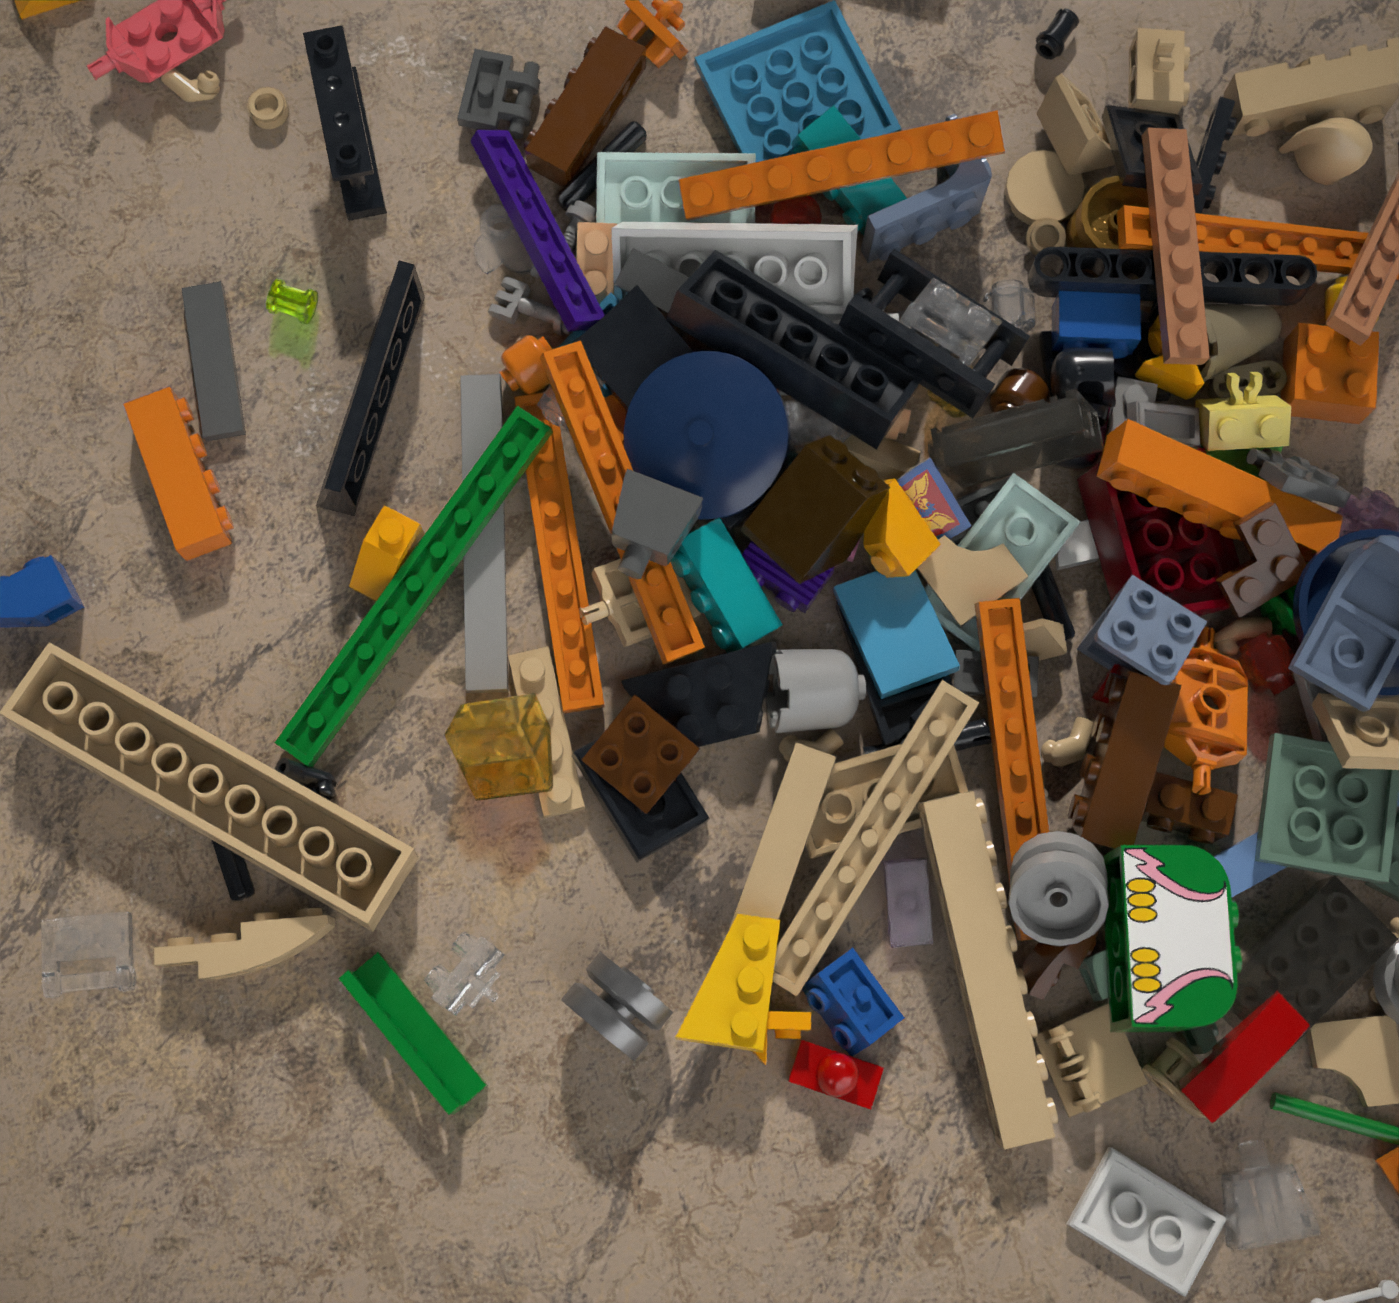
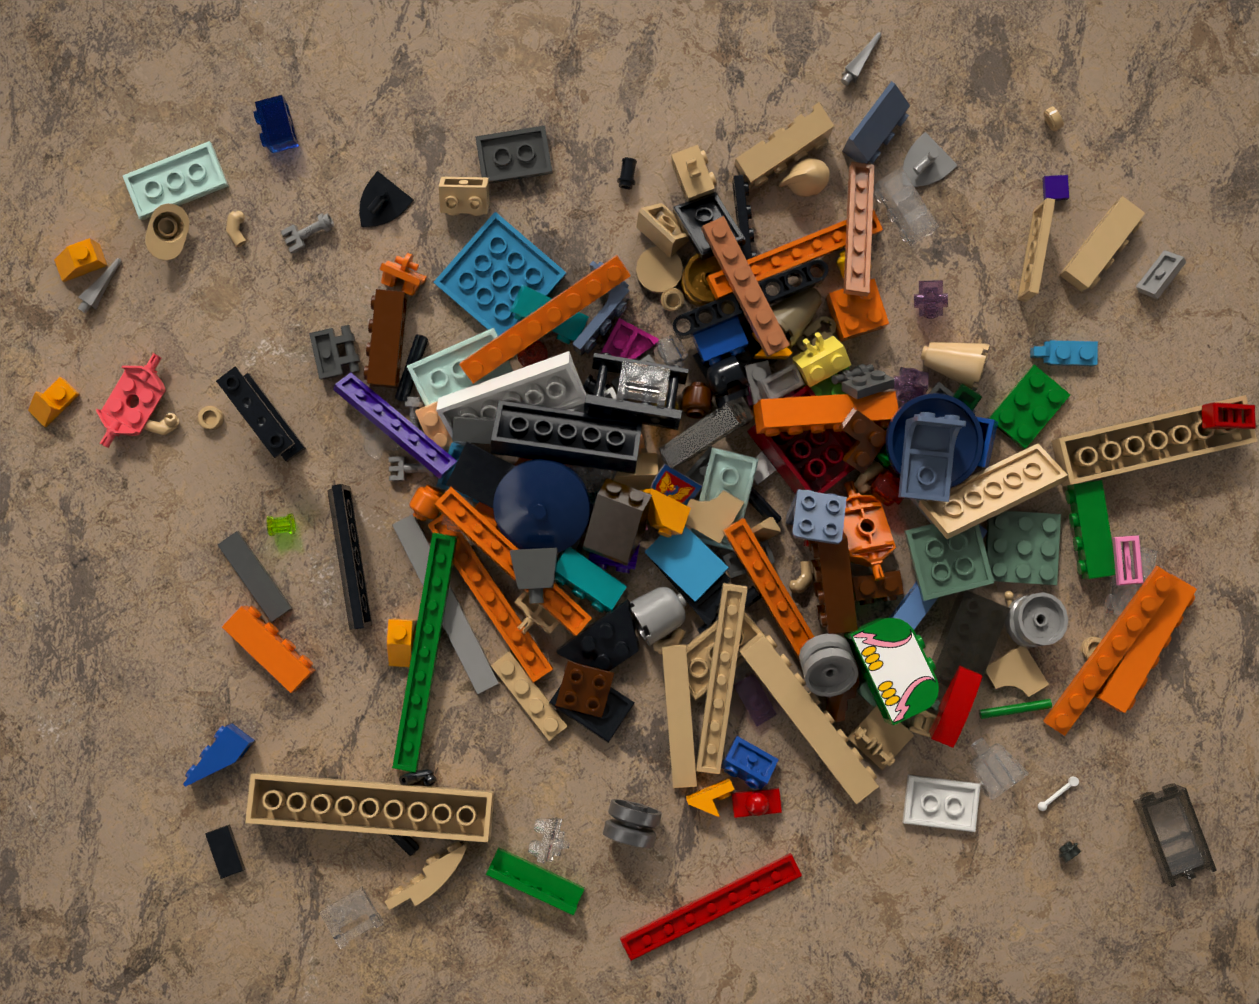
camera: 20 degrees left, 10 degrees up
(503, 747) = (511, 716): clear yellow slope -> none
(682, 1216) = (710, 906): none -> red tile
(737, 988) = (688, 786): yellow wing -> none
(955, 263) = (628, 341): none -> dark pink wing

